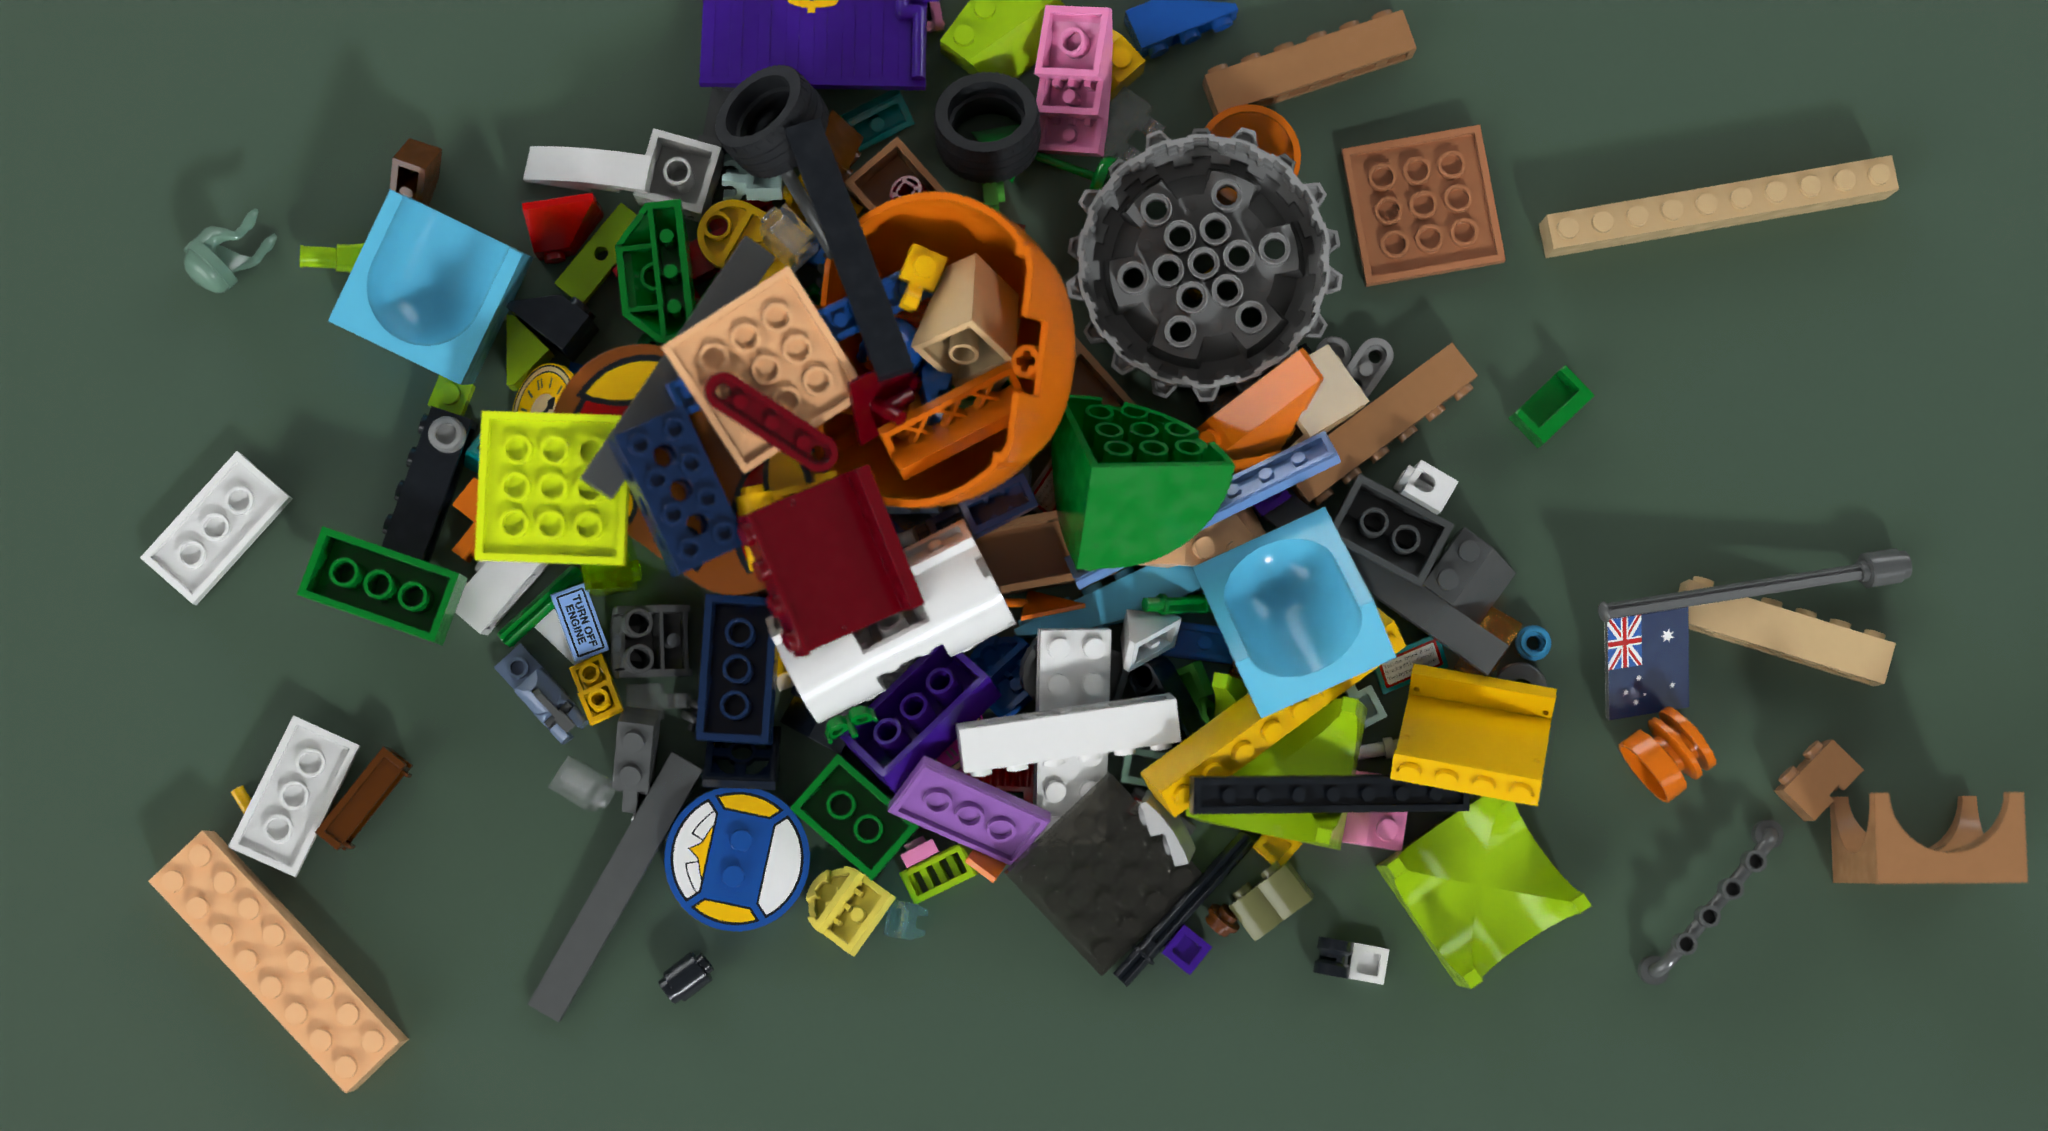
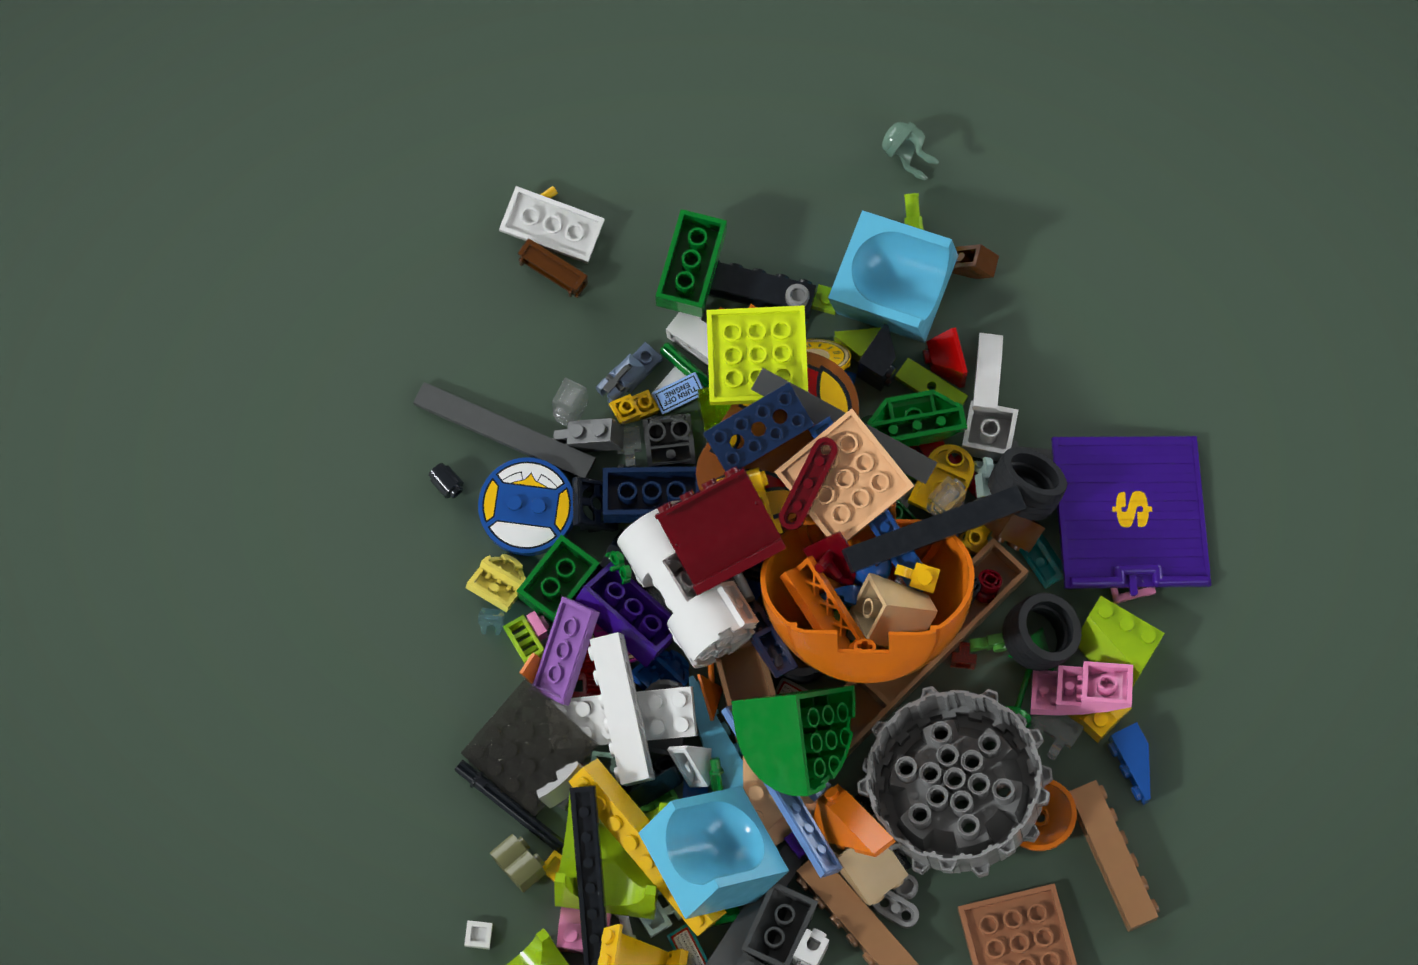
camera: 90 degrees right, 10 degrees down
(216, 528) = (725, 160): white plate -> none
(278, 960) = (444, 225): light nougat brick -> none
(1186, 949) = (481, 808): dark purple plate -> none
(1222, 920) = (502, 830): reddish brown plate -> none
(1336, 949) = (481, 909): black wheel -> none

